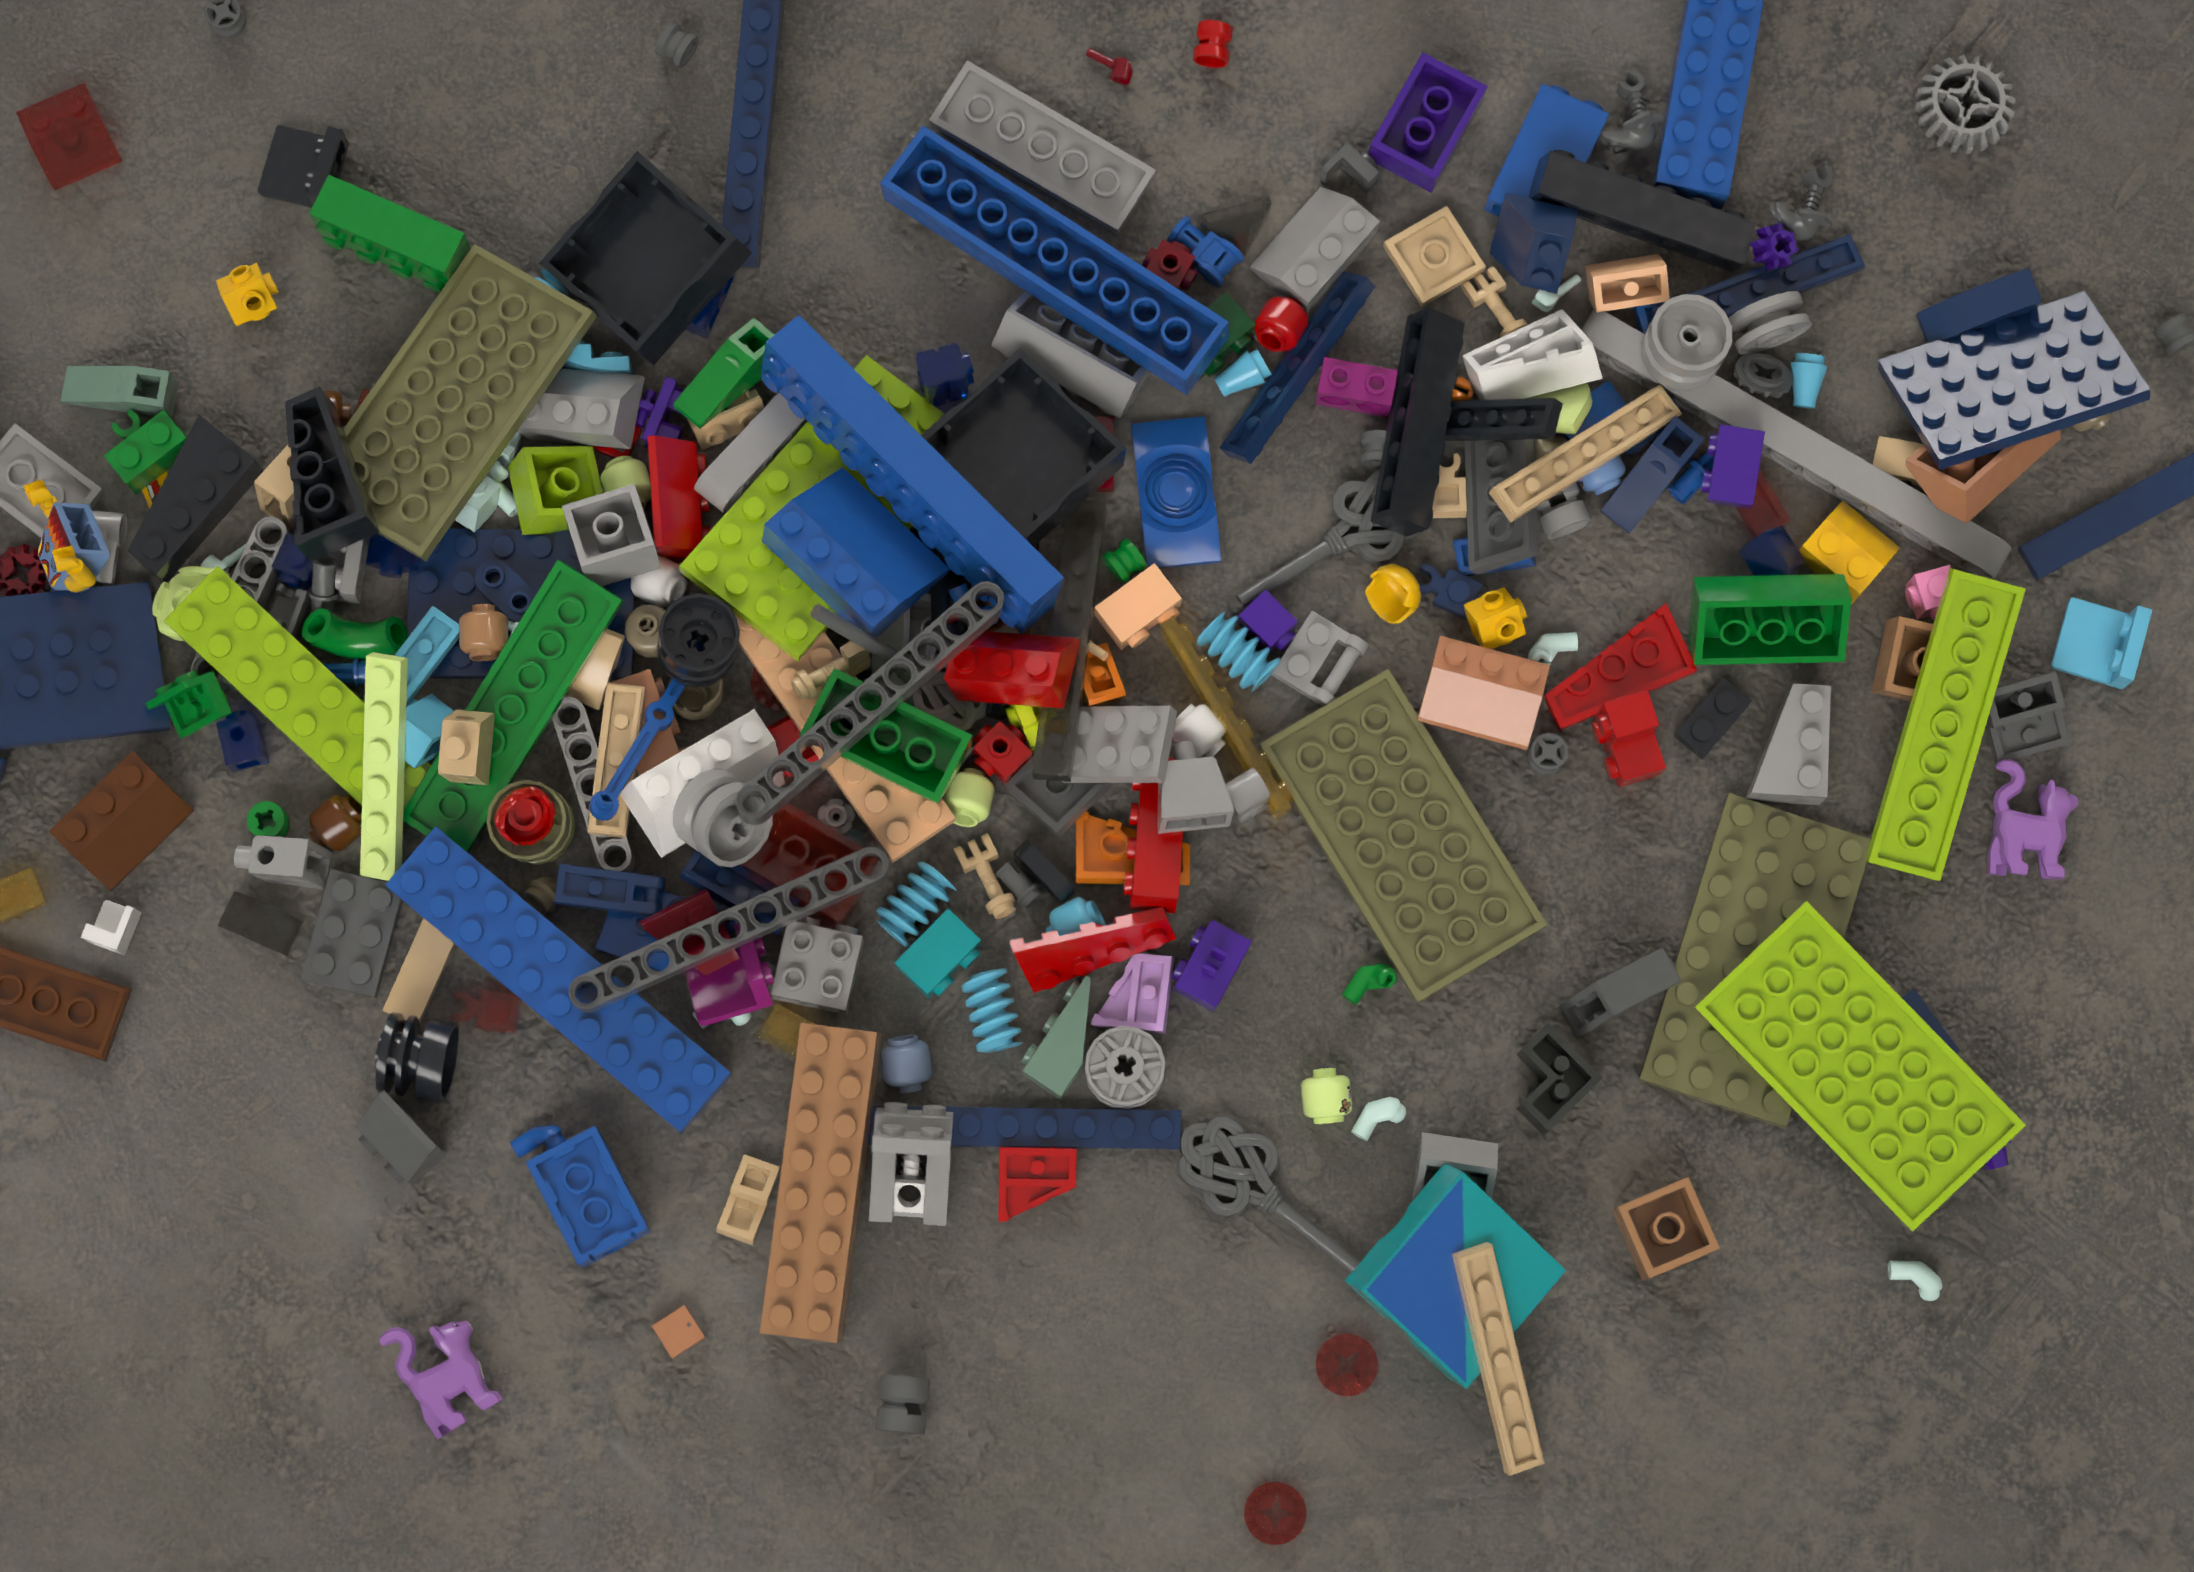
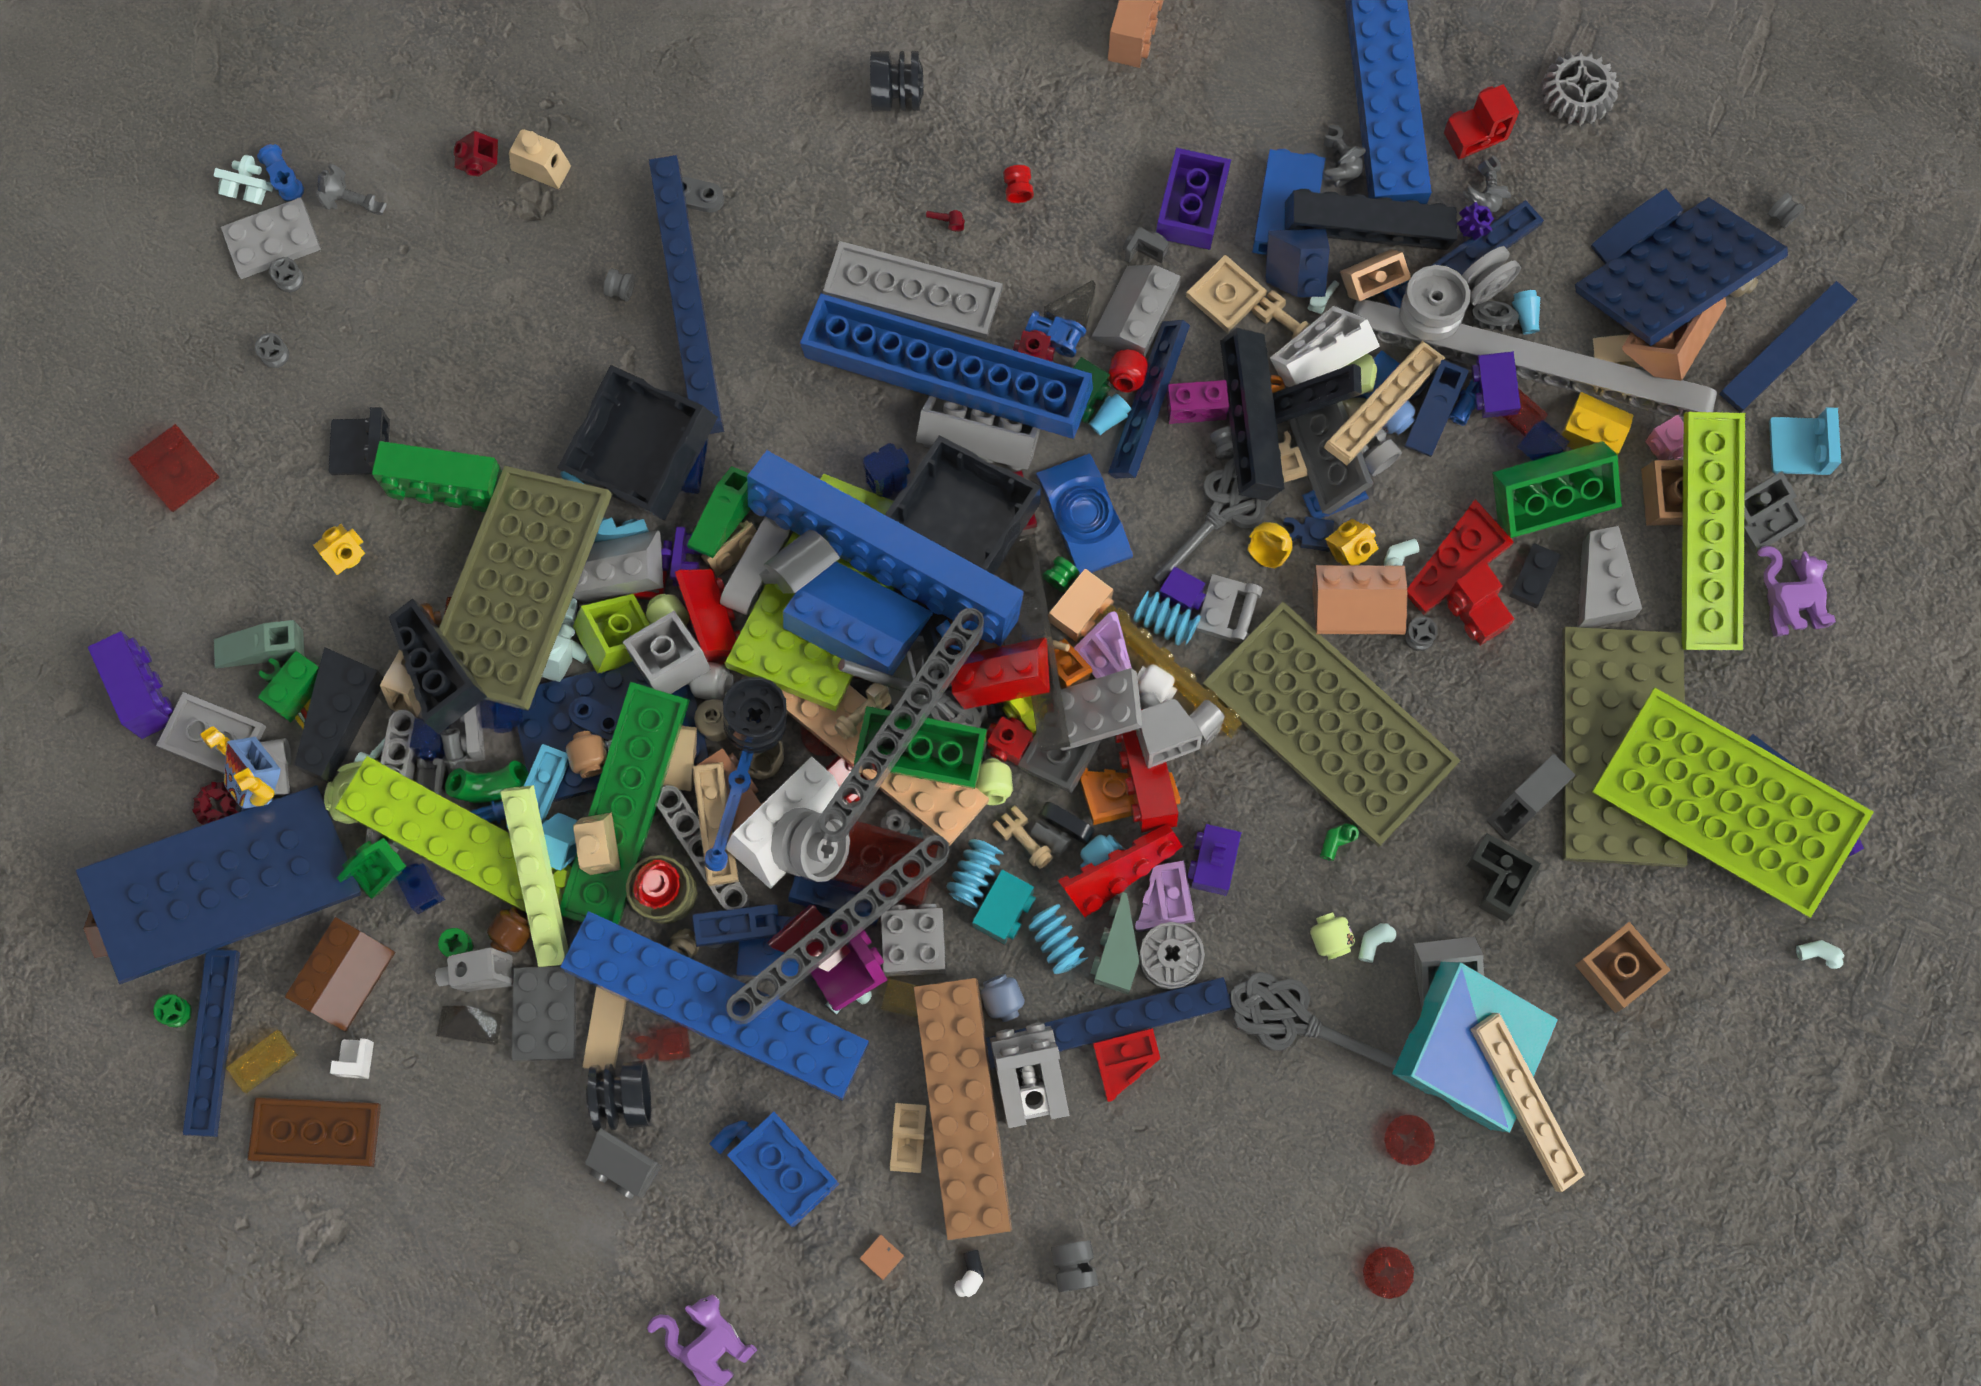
camera: 10 degrees left, 5 degrees down
(780, 1384) = (973, 1277): none -> arm
(802, 467) = (799, 562): none -> dark grey brick
(1151, 670) = (1105, 647): none -> lavender wing
(1823, 122) = (1484, 124): none -> red brick

